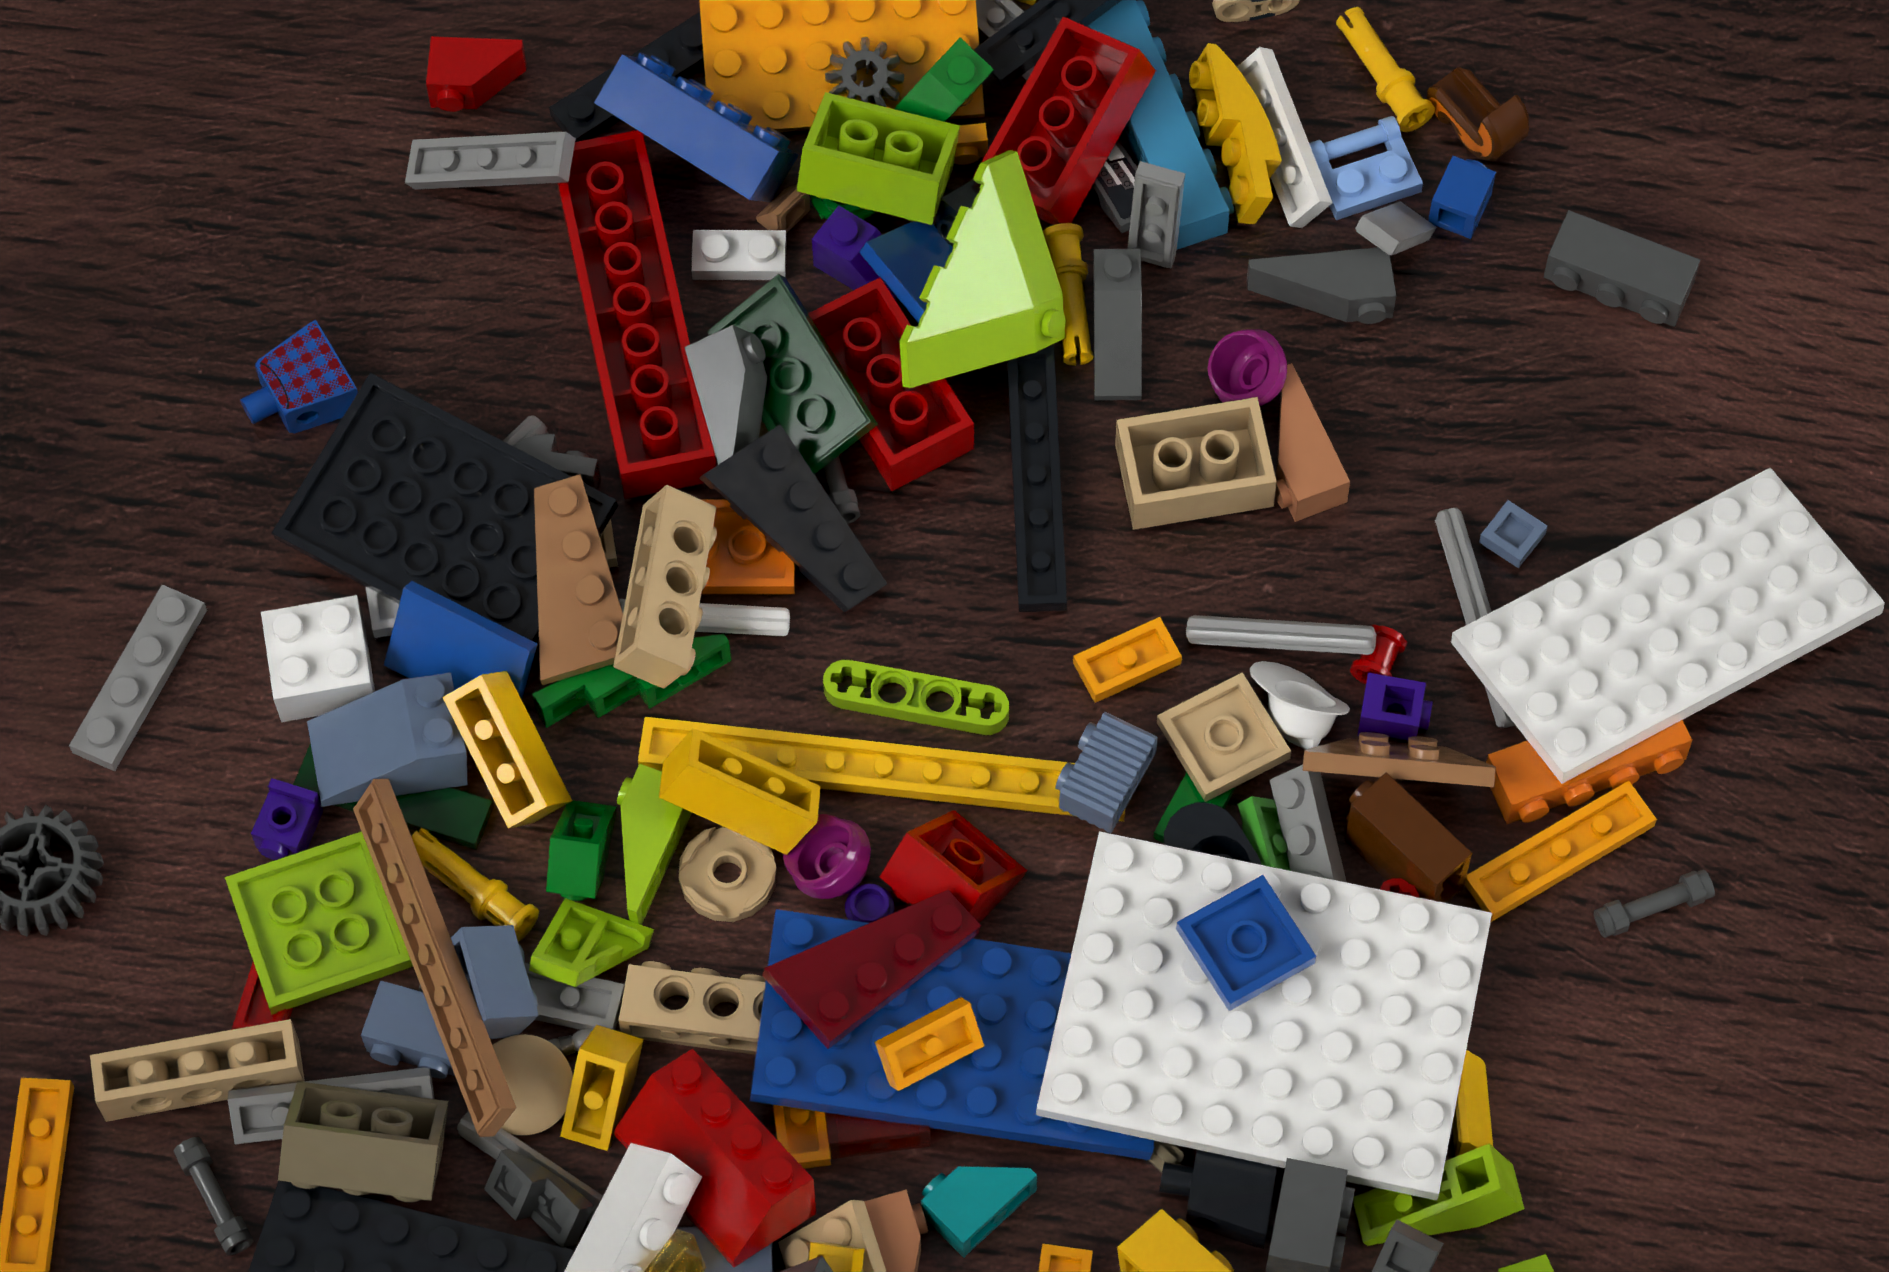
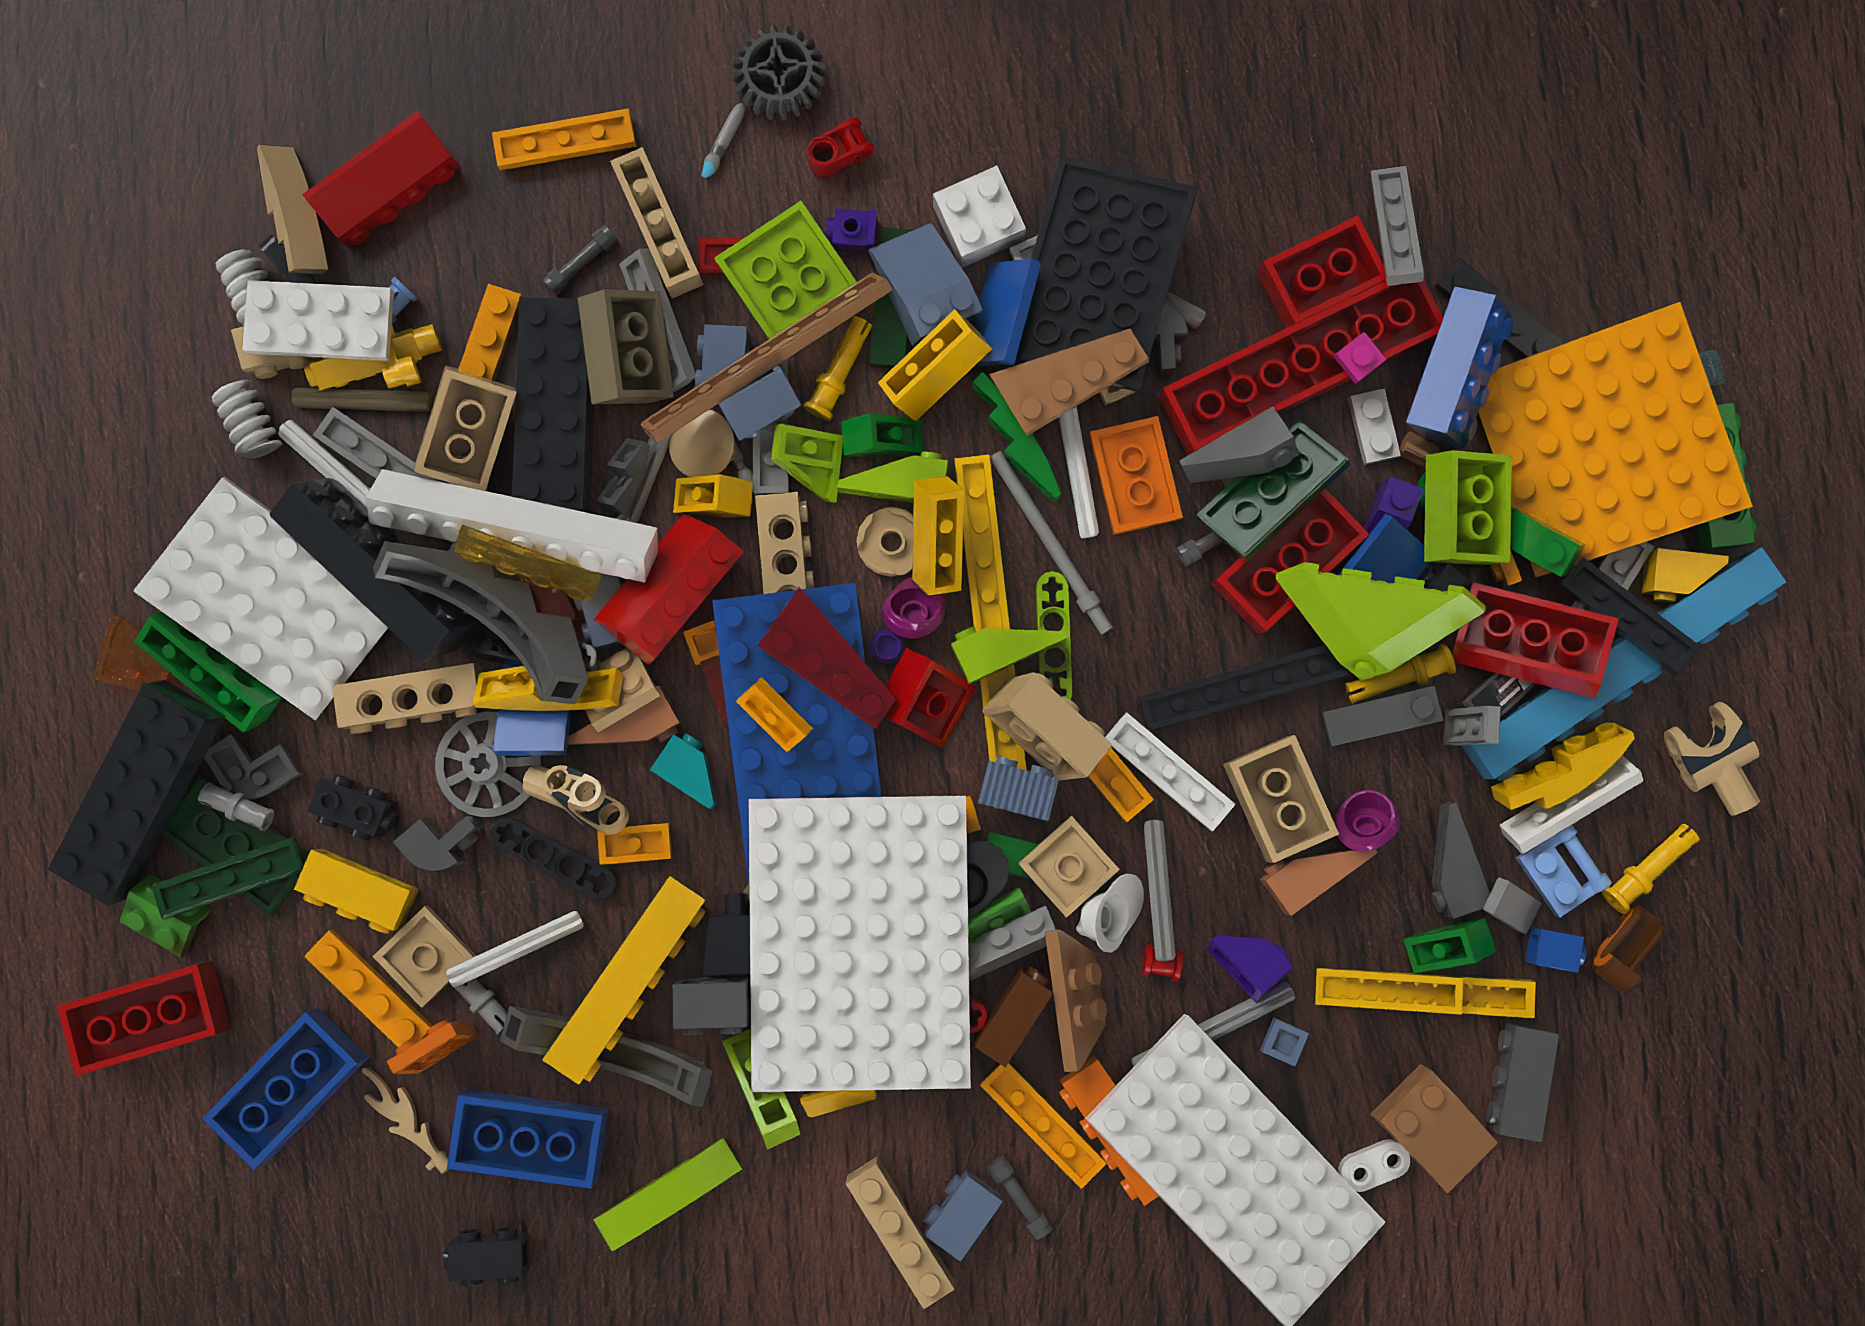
camera: 75 degrees right, 20 degrees up
(127, 988) = (723, 140): none -> light grey piece
(138, 678) = (940, 98): light grey plate -> none
(167, 811) = (844, 144): none -> red piece
(301, 382) = (1190, 143): blue torso -> none
(471, 70) = (1474, 191): red slope -> none
(526, 263) = (1321, 272): none -> red brick
(650, 235) = (1359, 357): none -> dark pink plate
(666, 587) = (1028, 436): tan brick -> none
(790, 507) = (1169, 514): black wing -> none
(872, 644) = (1087, 599): none -> light grey bar
(882, 77) = (1536, 469): dark grey gear -> none
(911, 761) = (995, 649): none -> lime slope
(1030, 712) = (1047, 726): none -> tan brick
(1127, 593) = (1169, 772): none -> white plate
(1246, 942) = (897, 920): blue plate -> none
(1394, 694) = (1131, 970): dark purple brick -> none
(1400, 548) = (1251, 962): none -> dark purple slope
(1431, 314) = (1450, 945): none -> green slope
(1484, 358) = (1426, 992): none -> yellow slope
(1658, 385) = (1434, 1127): none -> medium nougat slope
(1662, 976) = (962, 1214): none -> sand blue brick
(1694, 463) = (1375, 1164): none -> white plate
(1706, 1044) = (899, 1234): none -> tan arch

